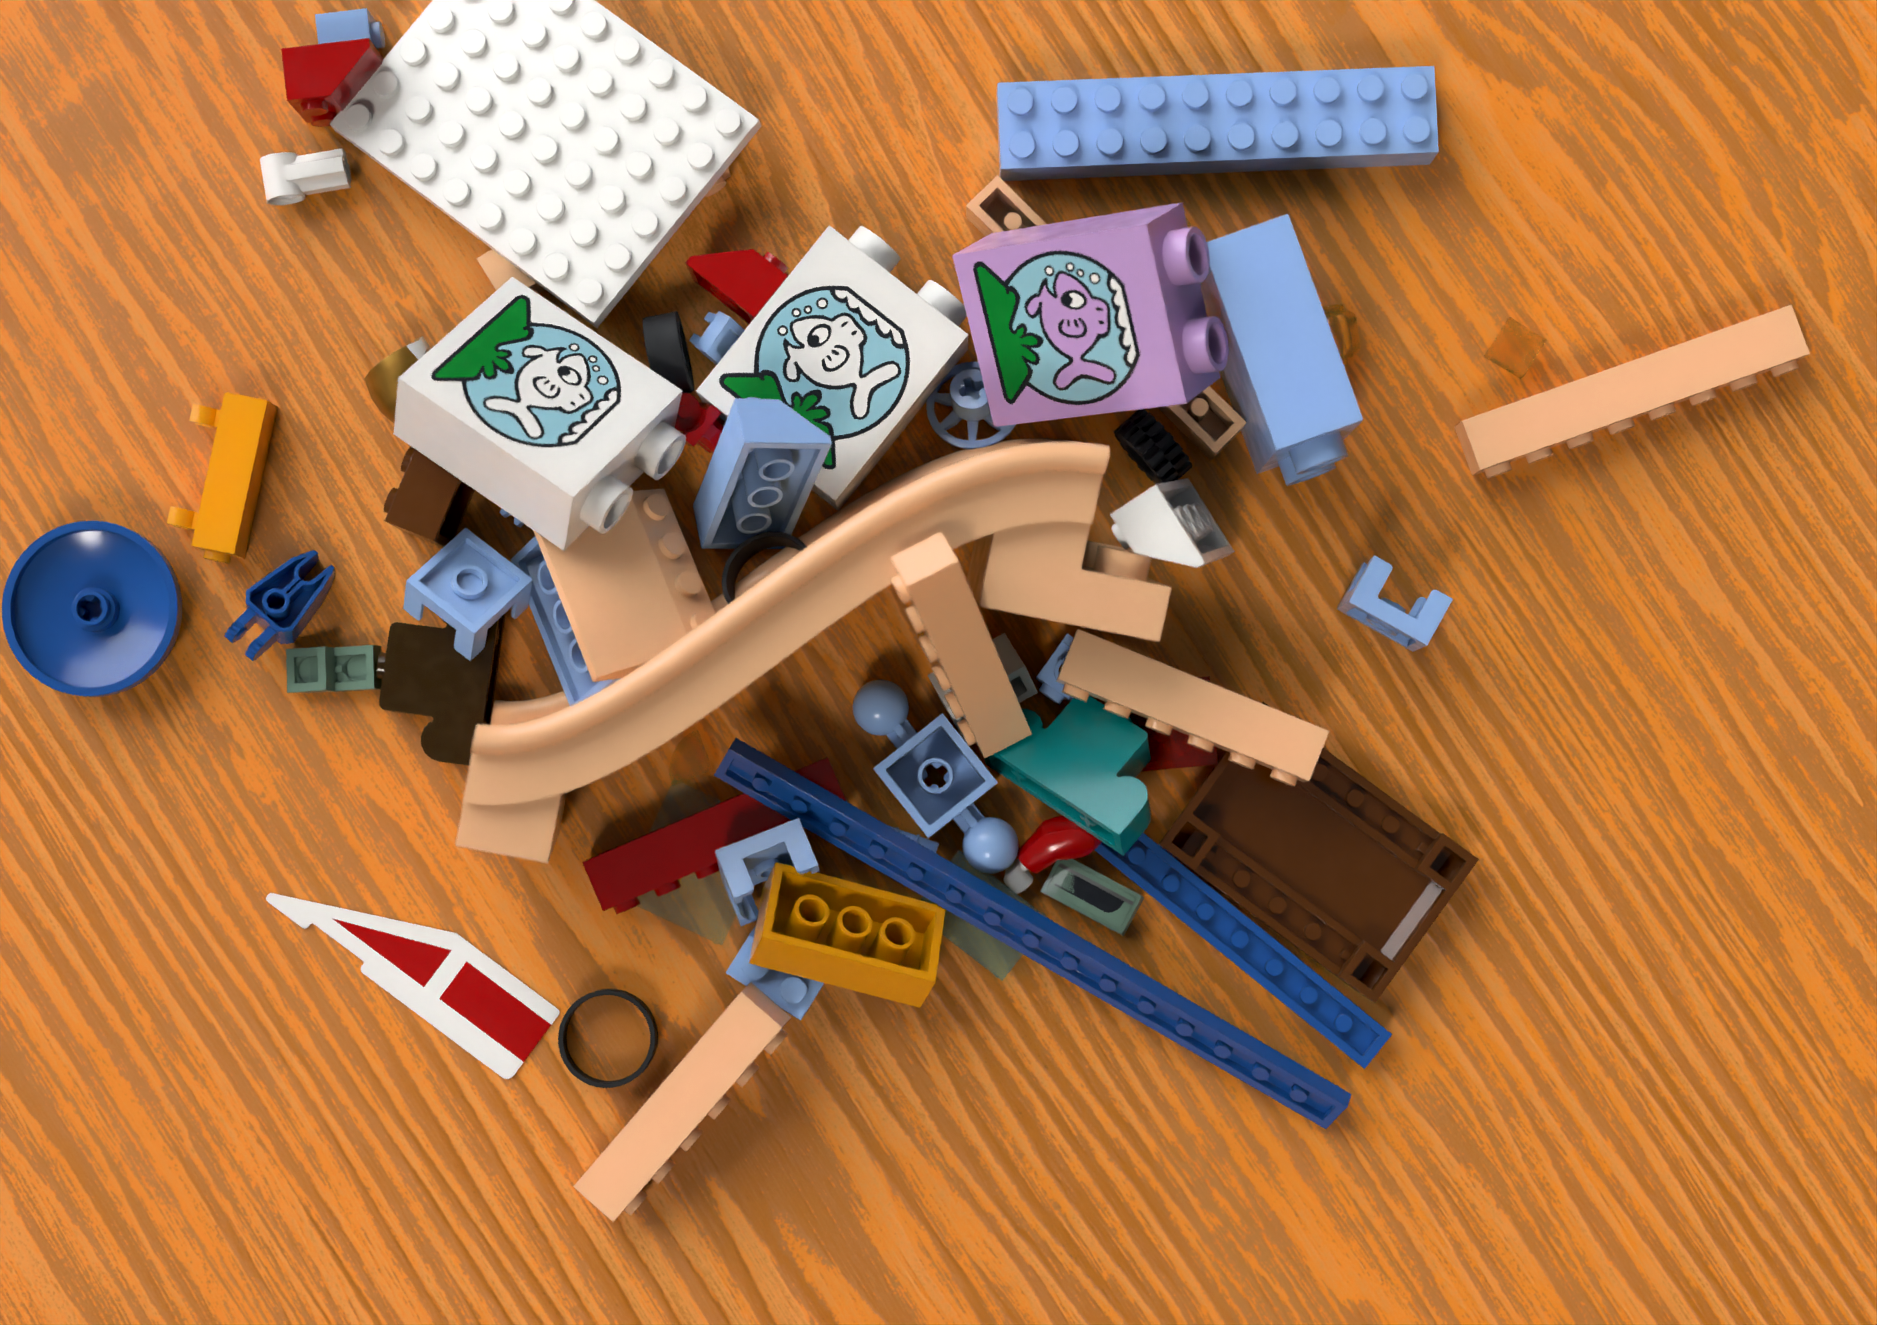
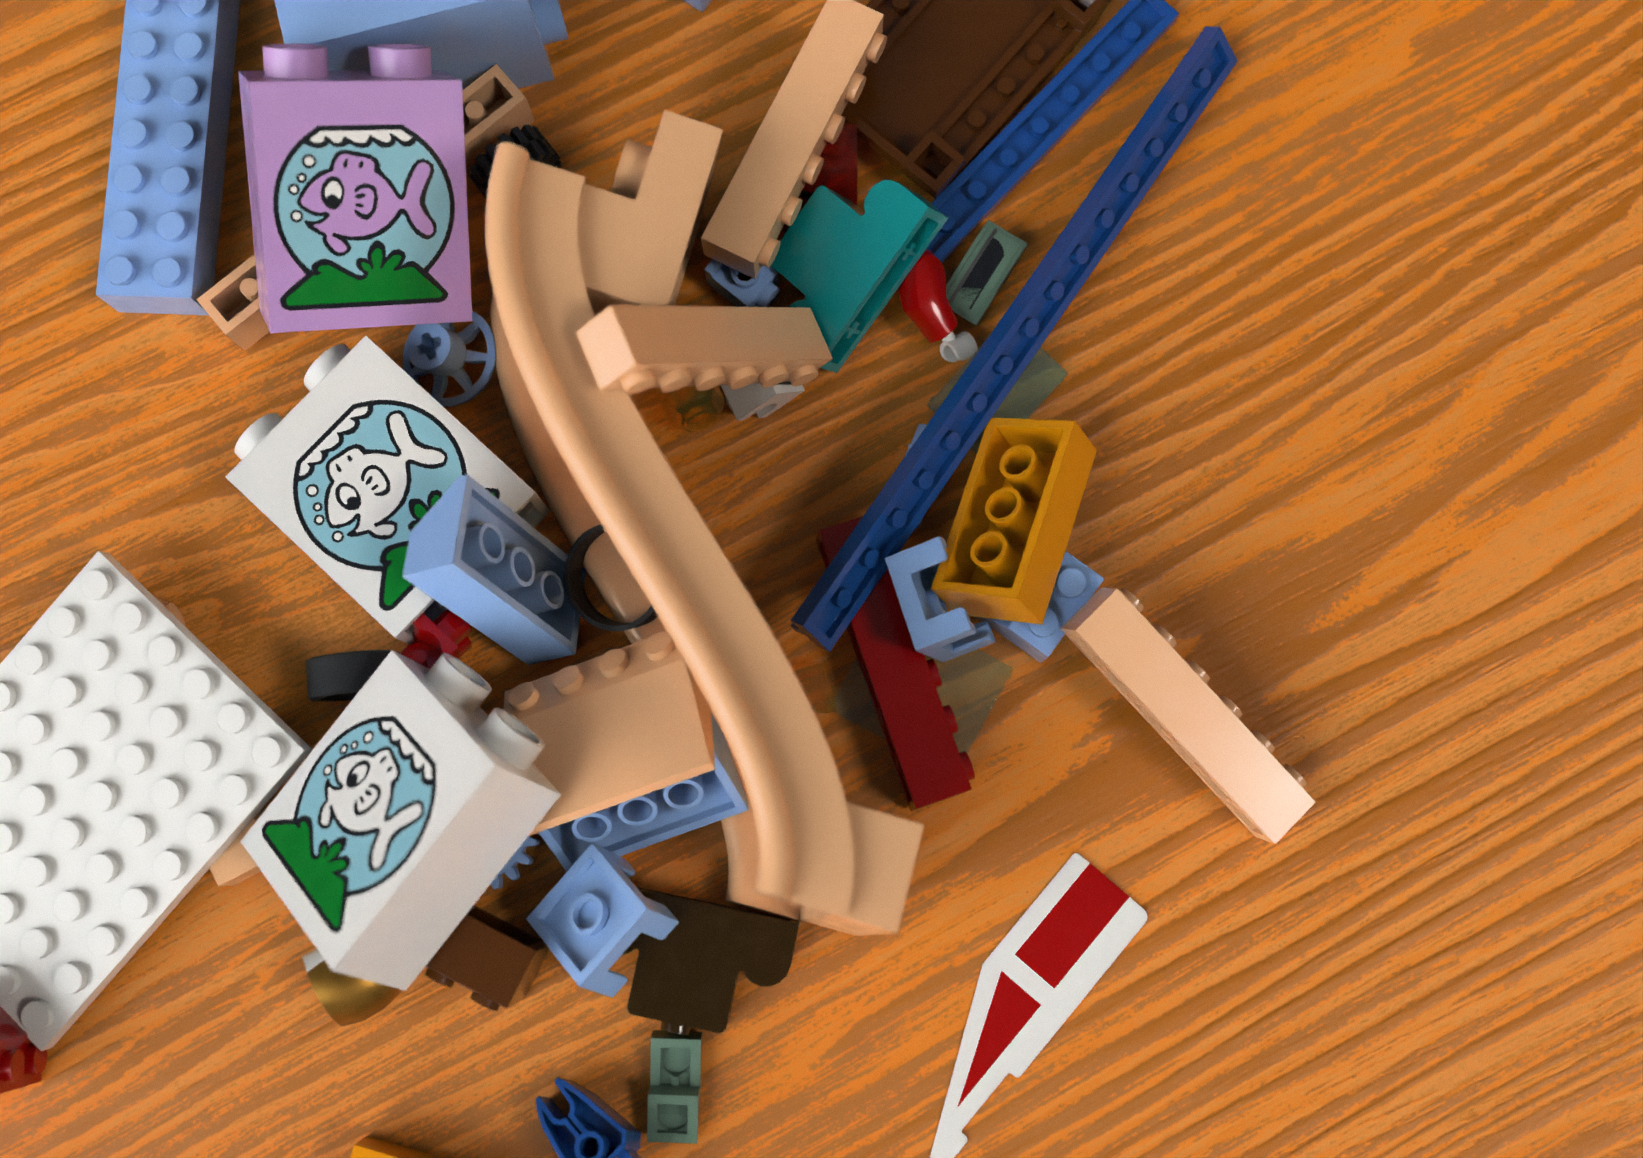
camera: 90 degrees left, 5 degrees down
(292, 176) = (99, 1097): white piece -> none
(562, 1040) = (1158, 790): black tyre -> none
(718, 336) = (345, 620): light blue tile -> none
(739, 279) = (280, 589): red slope -> none
(883, 710) = (852, 389): light blue brick -> none
(1171, 526) = (595, 130): white slope -> none

